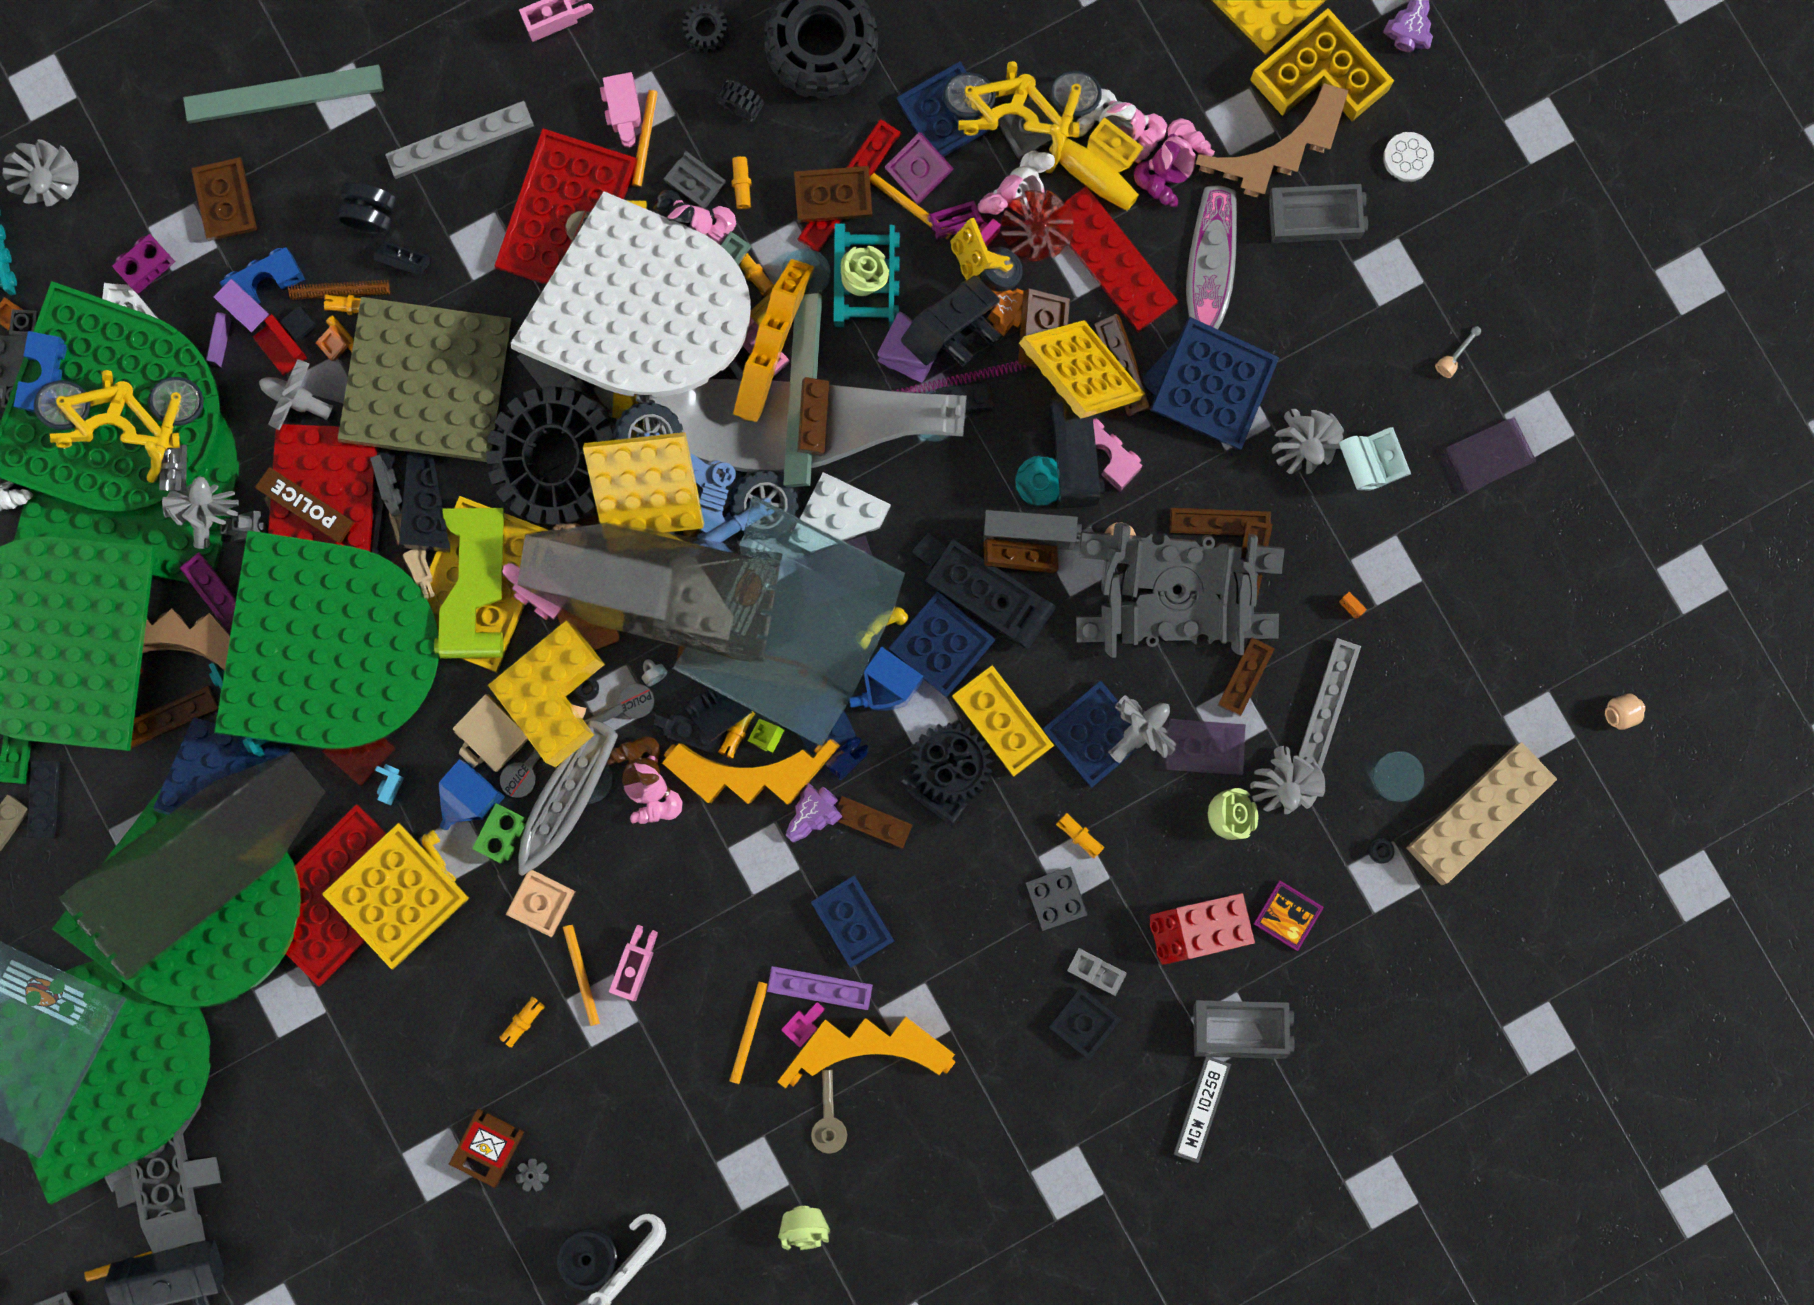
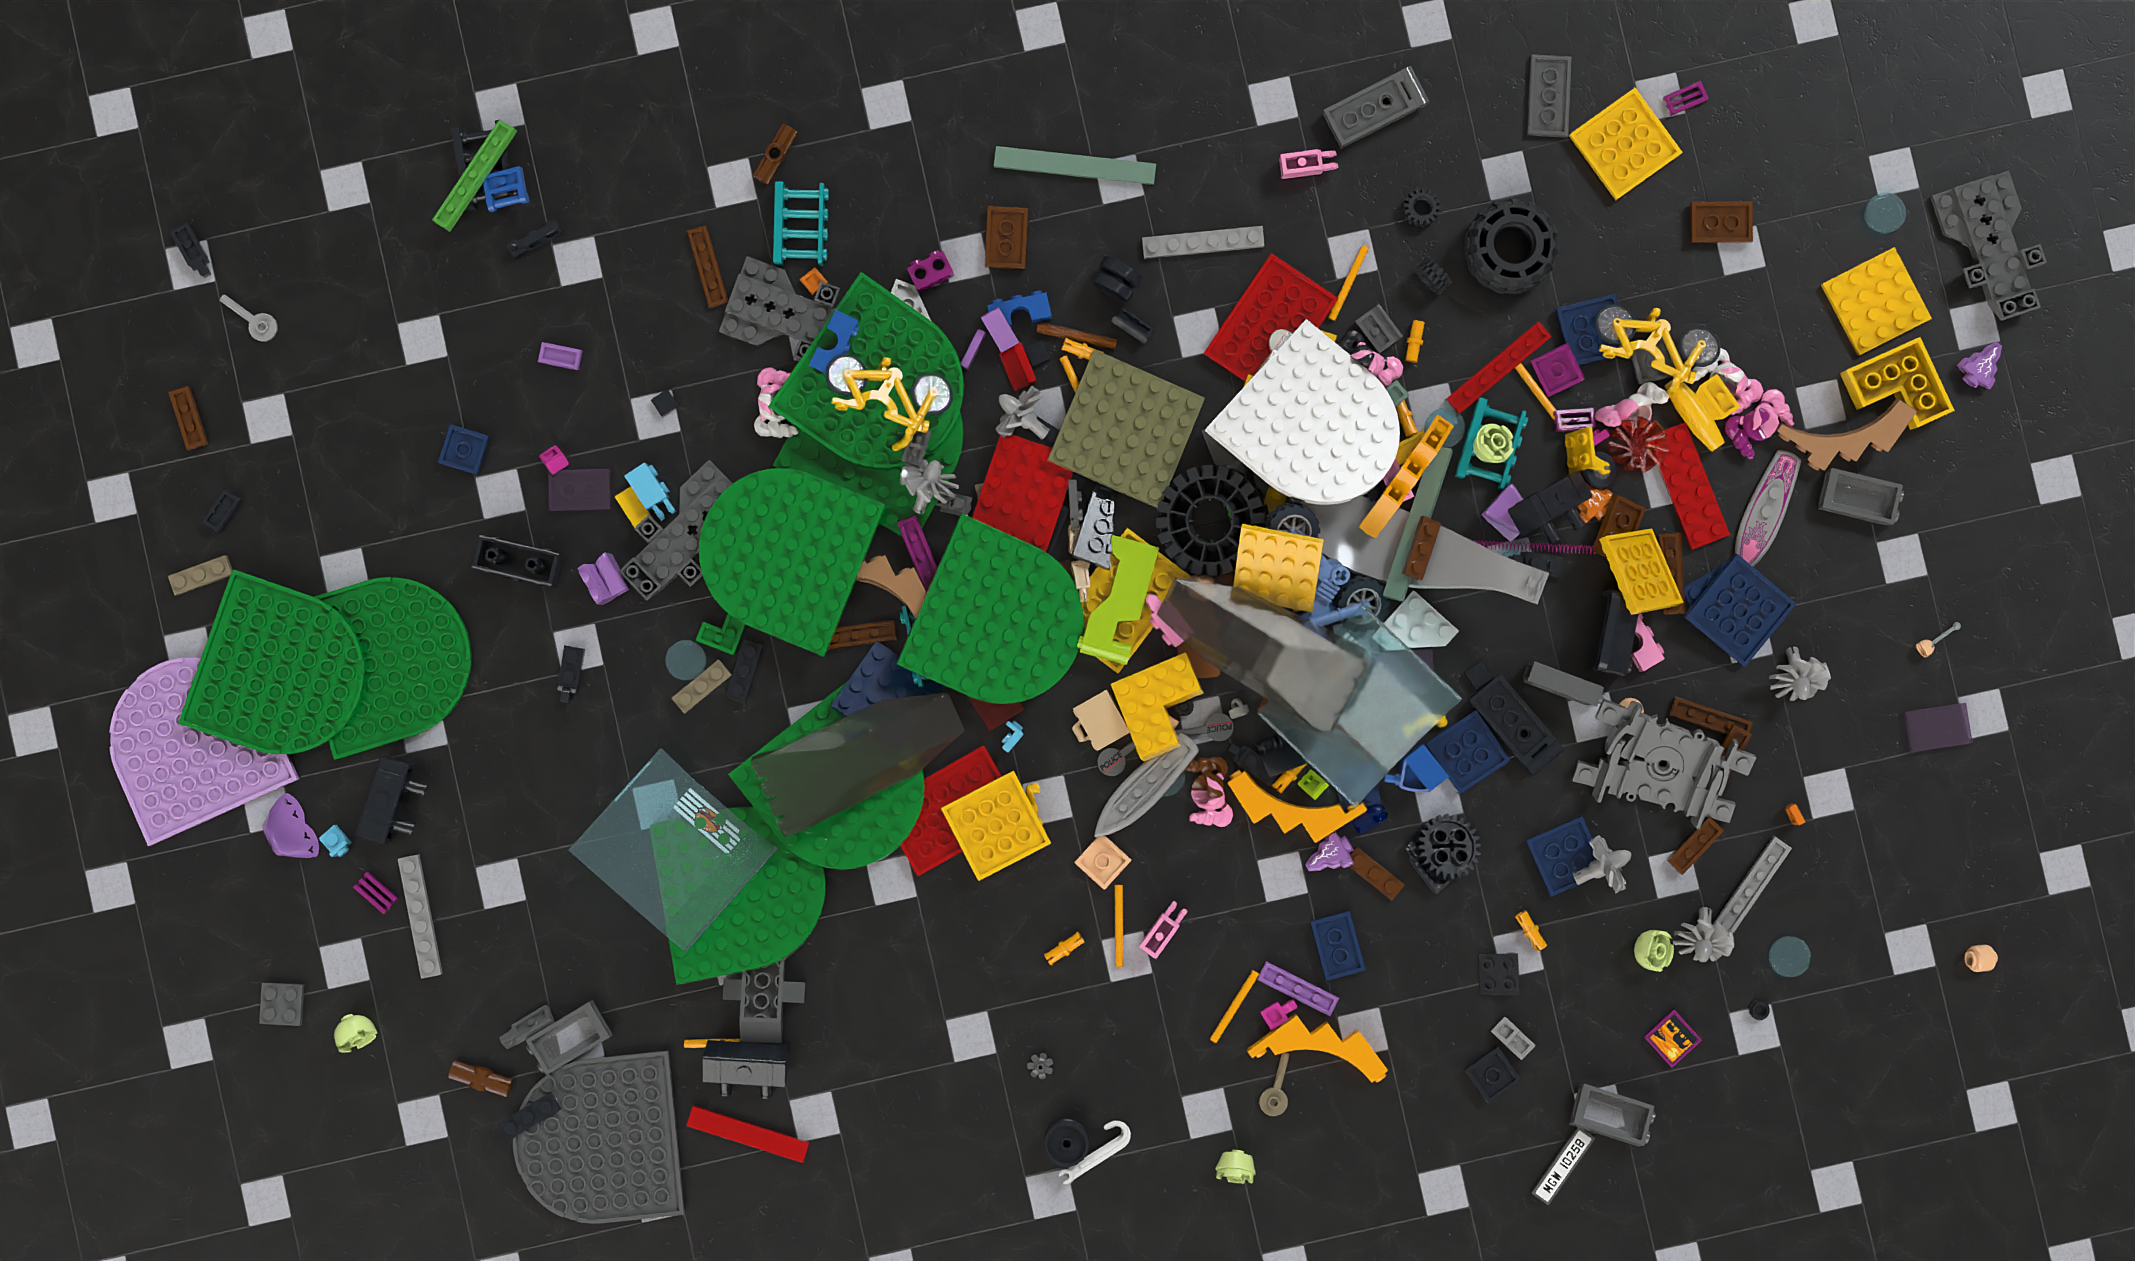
camera: 20 degrees right, 5 degrees up
(48, 172) = (877, 178): light grey piece -> none
(304, 505) = (1008, 503): reddish brown tile -> none
(333, 343) = (1061, 377): orange tile -> none
(466, 795) = (1070, 765): blue piece -> none
(489, 1144) = (1014, 1033): container -> none
(493, 830) = (1082, 795): bright green brick -> none
(623, 106) = (1339, 253): bright pink hinge -> none
(833, 194) = (1485, 372): reddish brown plate -> none
(1002, 721) = (1497, 825): yellow plate -> none
(1020, 555) = (1549, 701): reddish brown plate -> none
(1038, 481) = (1580, 645): teal tile -> none
(1201, 929) = (1603, 1030): bracket -> none
(1206, 747) = (1649, 890): clear purple tile -> none
(1374, 459) = (1847, 706): light aqua piece -> none
(1408, 156) = (1946, 471): white tile -> none
(1481, 813) = (1845, 1004): tan brick -> none

